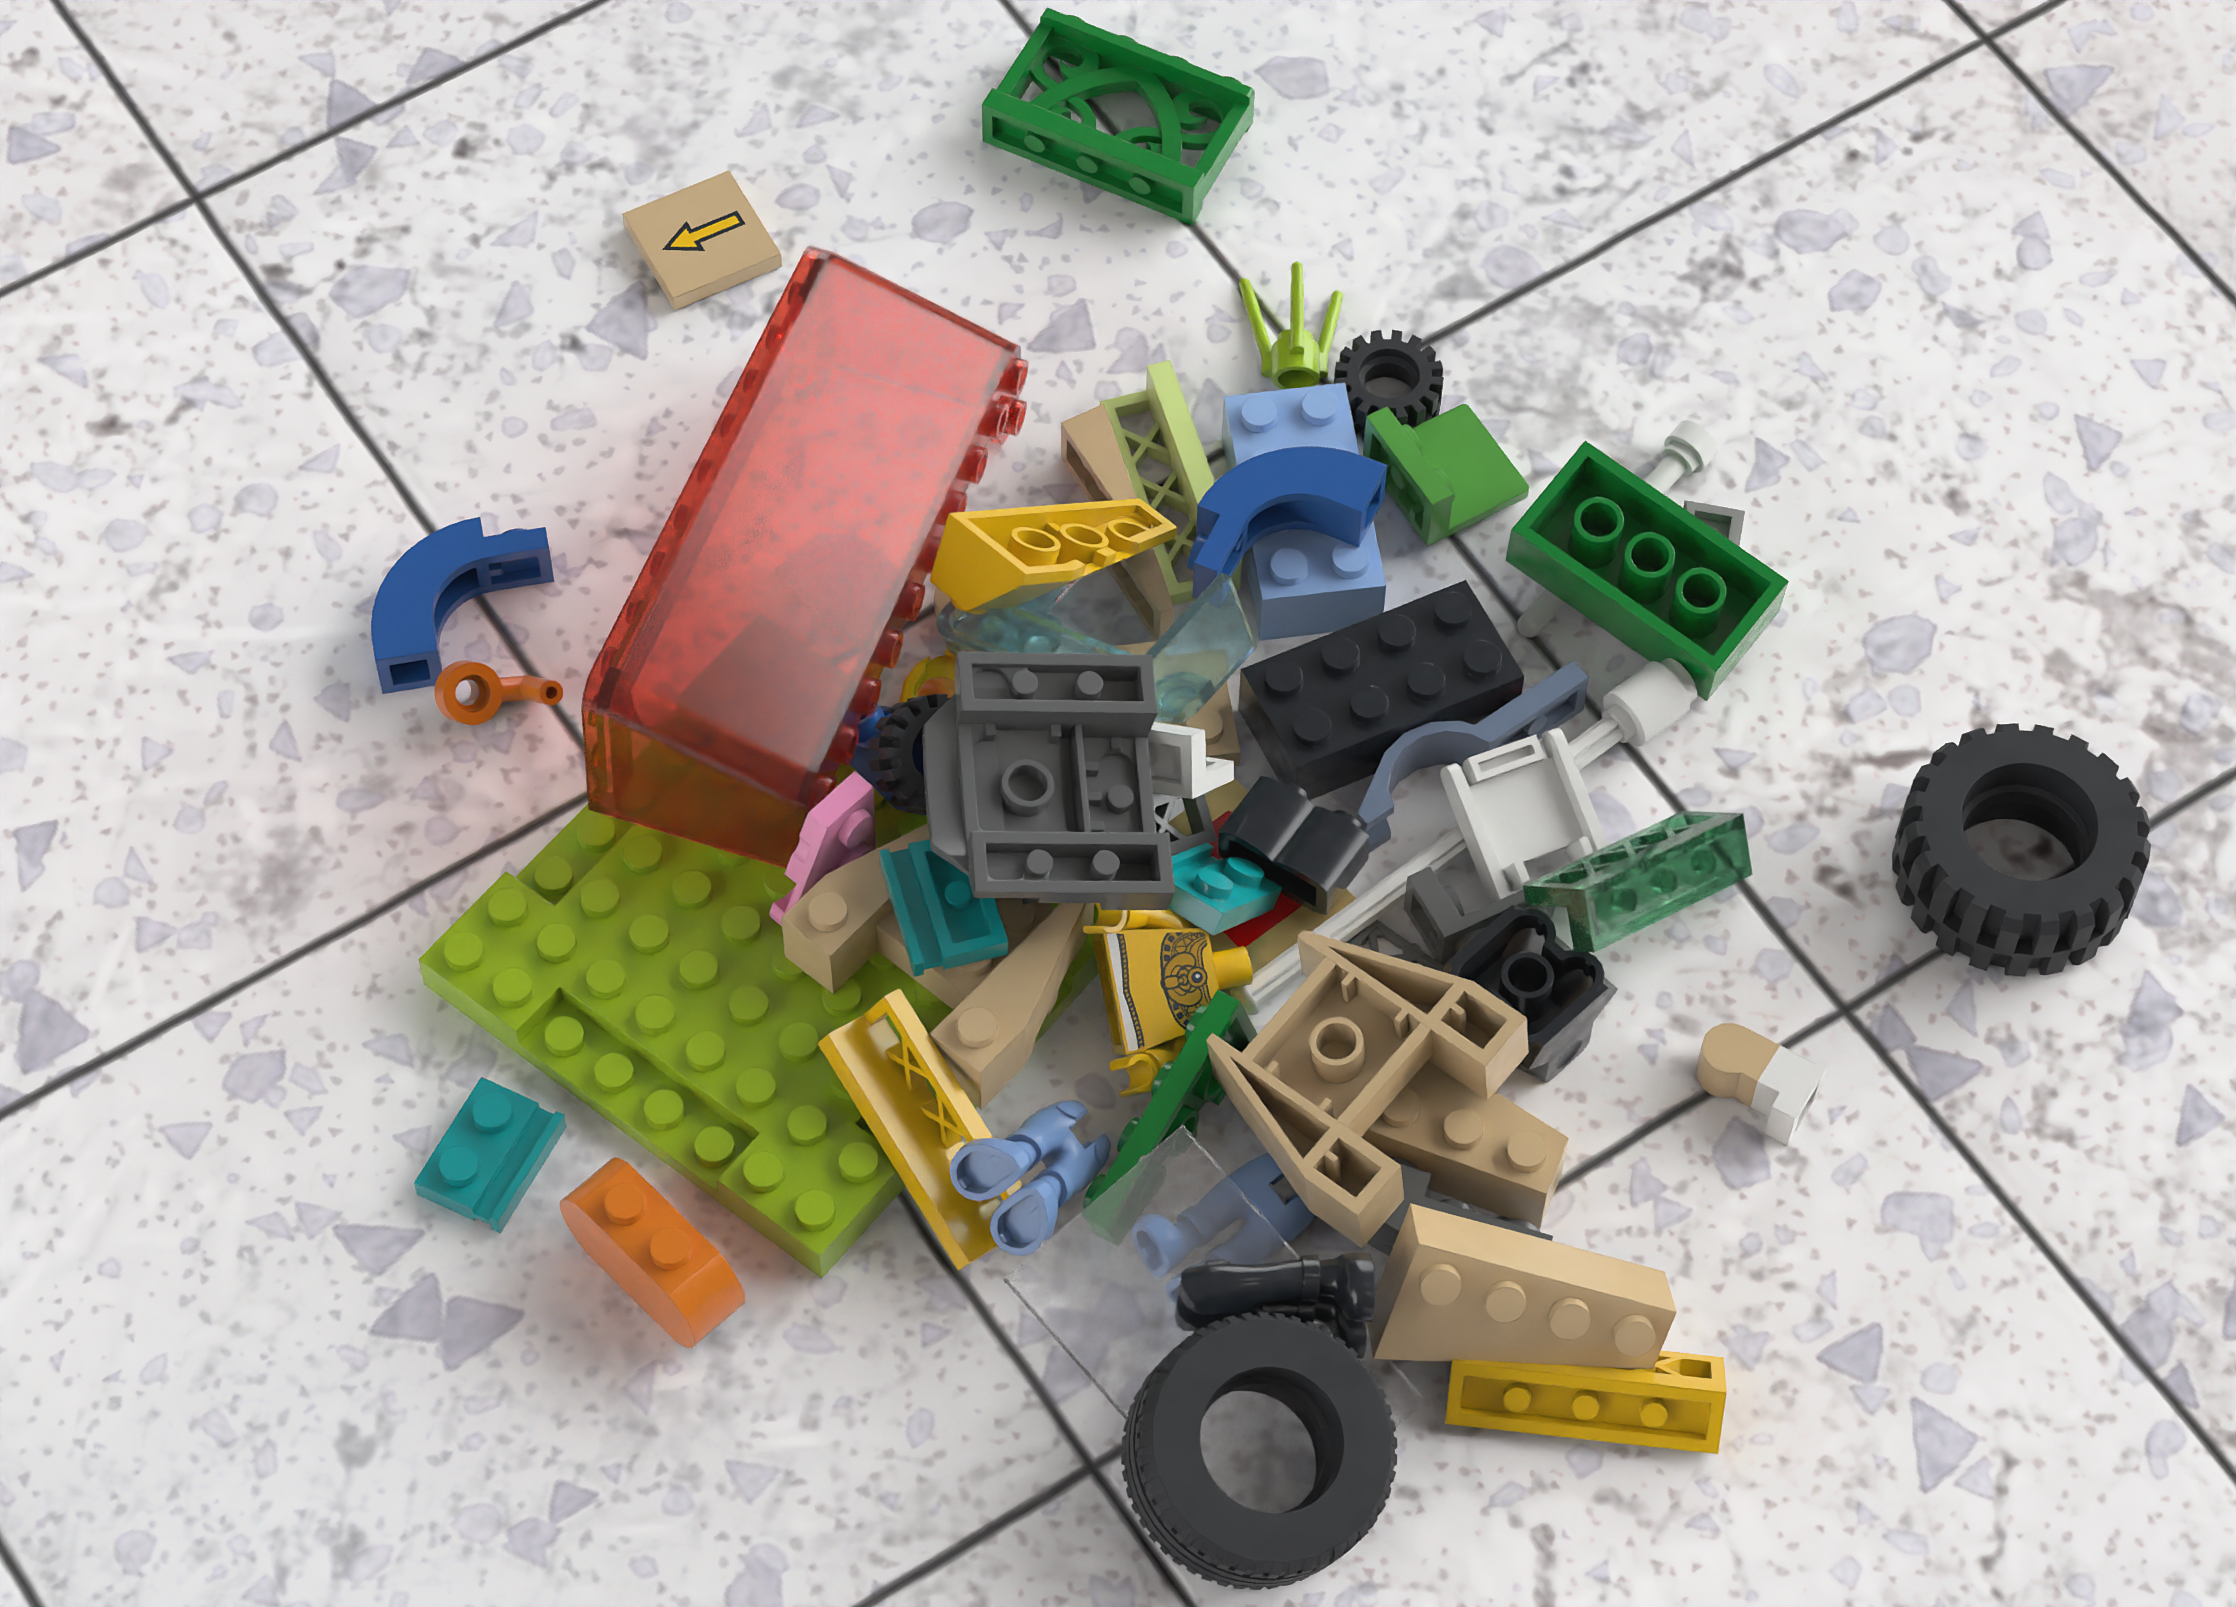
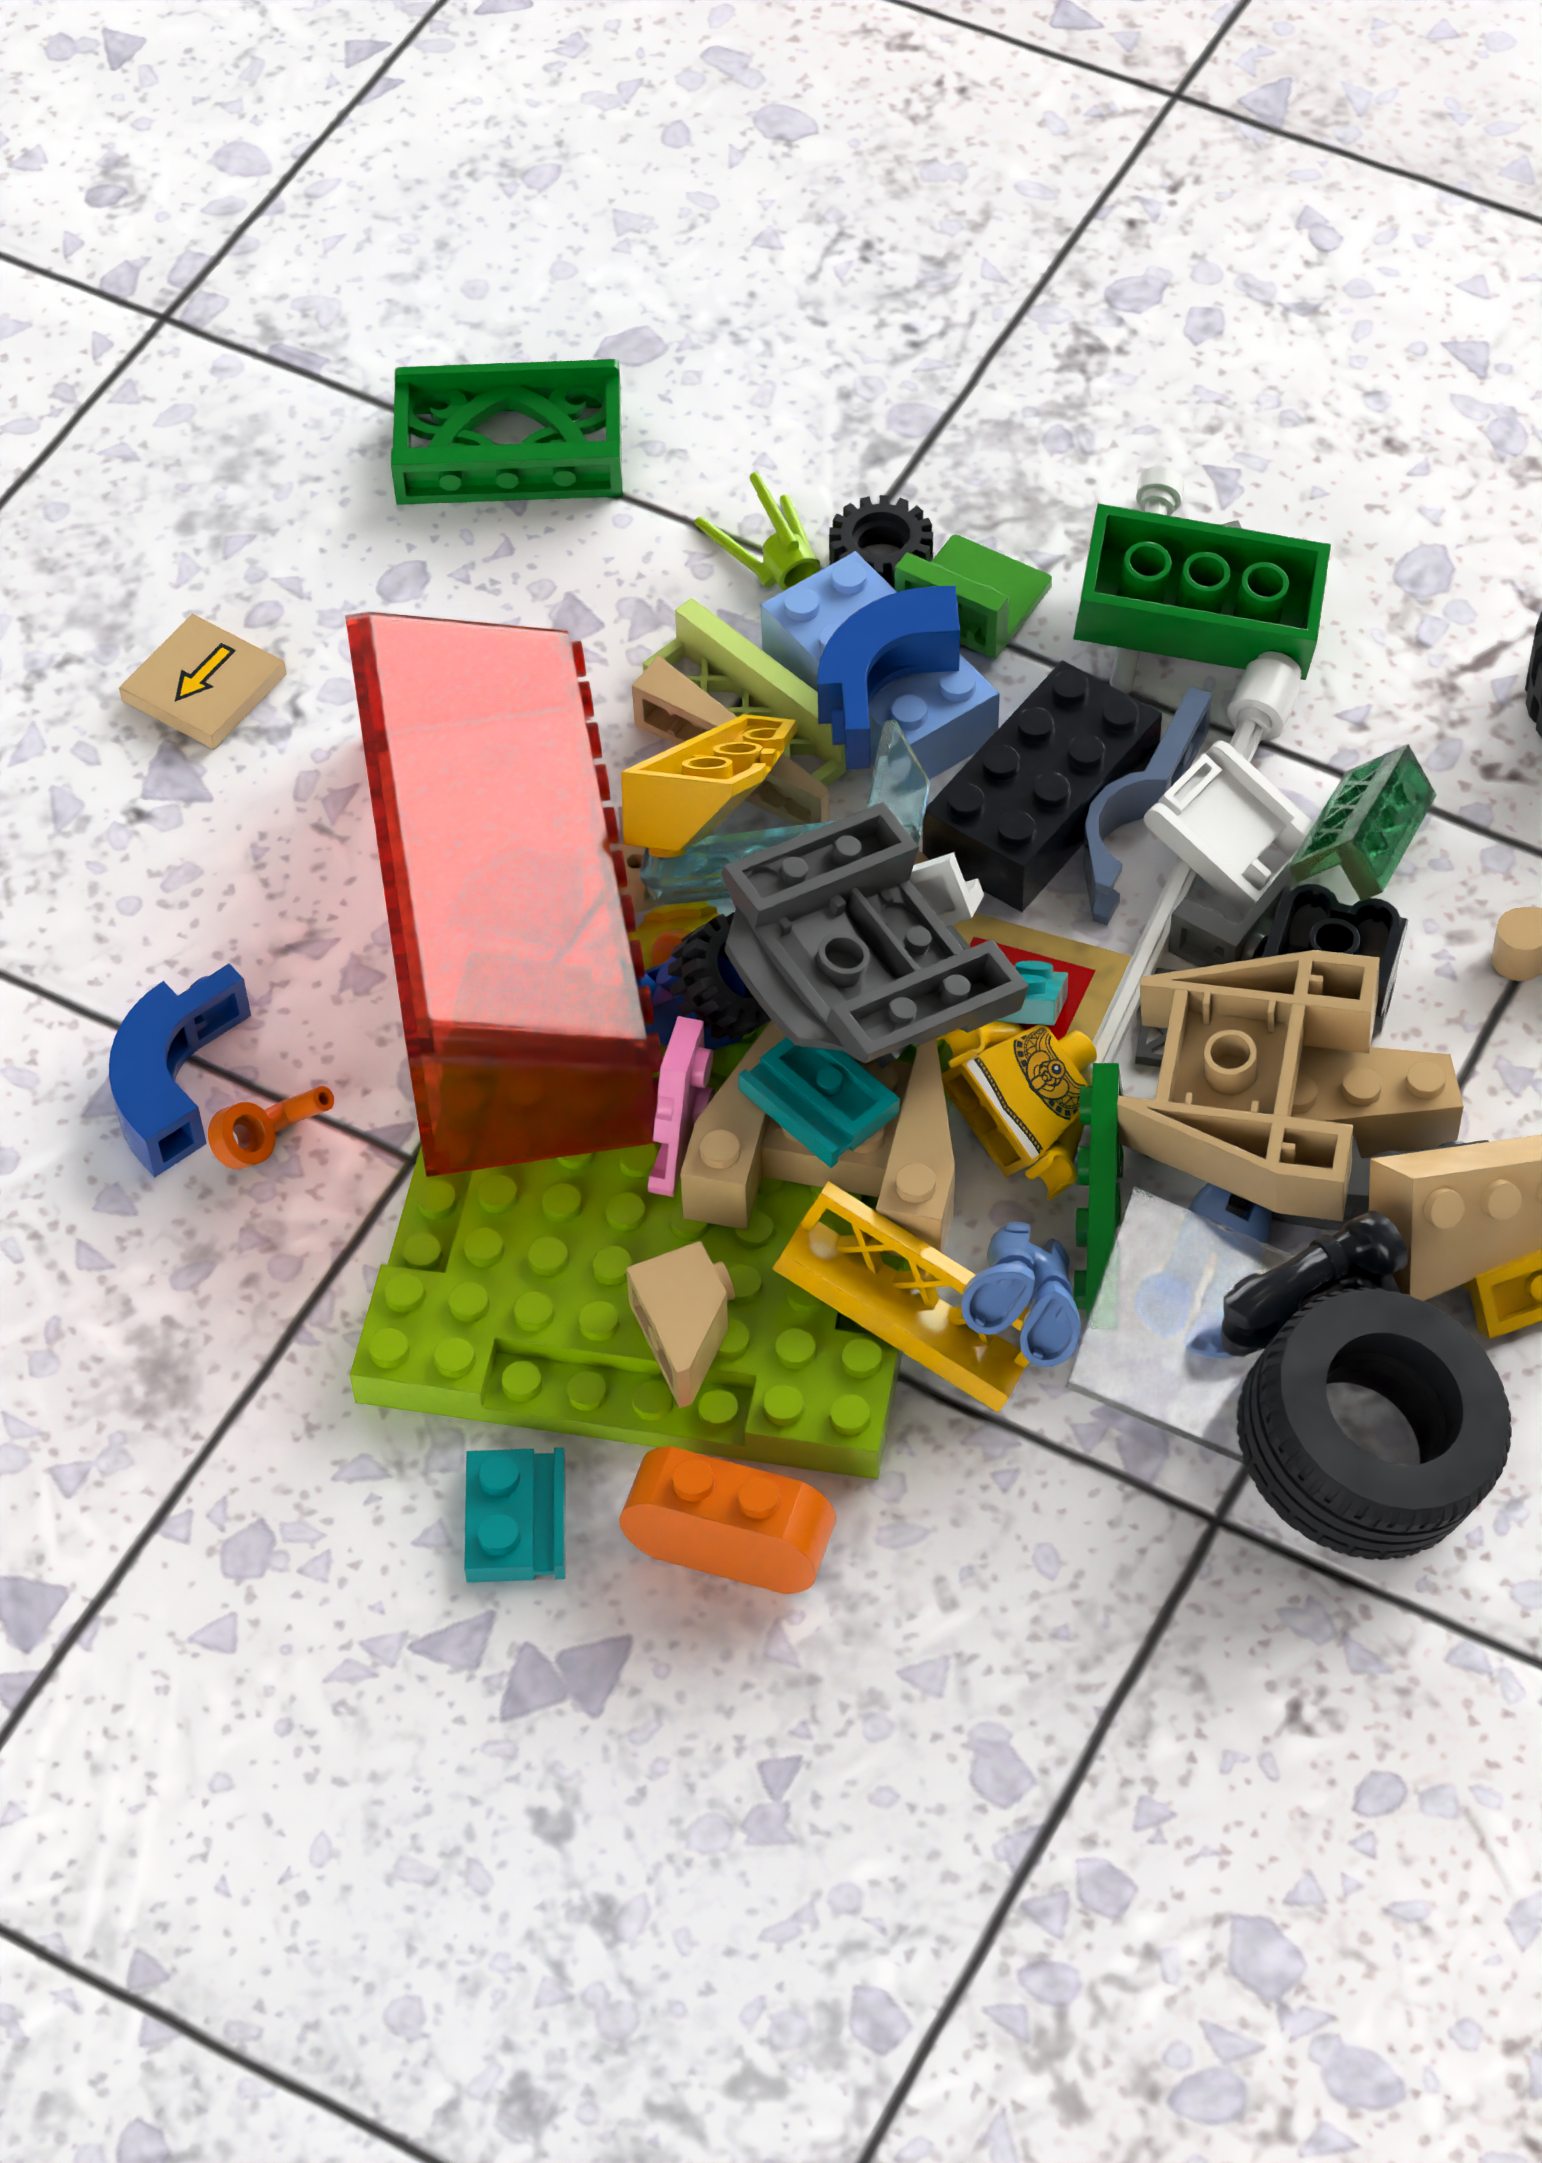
camera: 25 degrees left, 5 degrees down
(716, 1048) = (682, 1314): none -> tan slope
(1296, 843) = (1066, 927): black brick -> none

